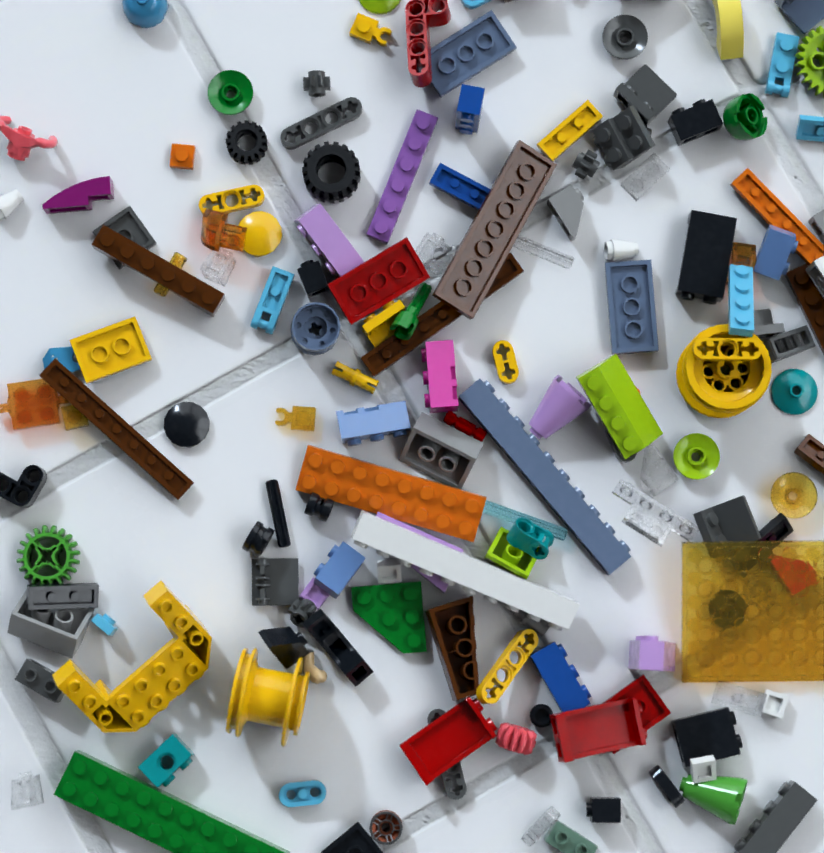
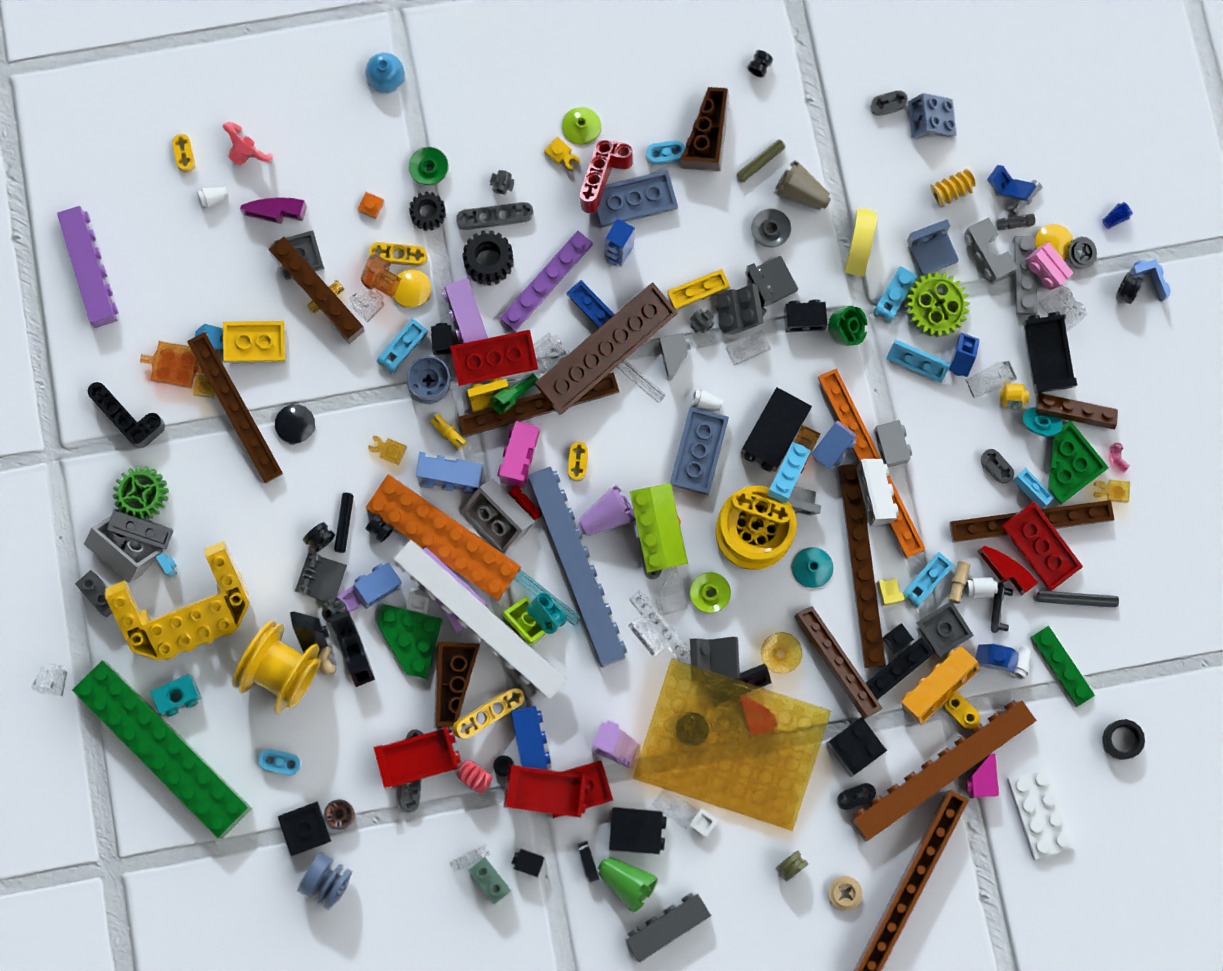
camera: 15 degrees right, 5 degrees down
(703, 769) = (622, 855): white plate -> none
(776, 349) = (809, 520): dark grey slope -> none

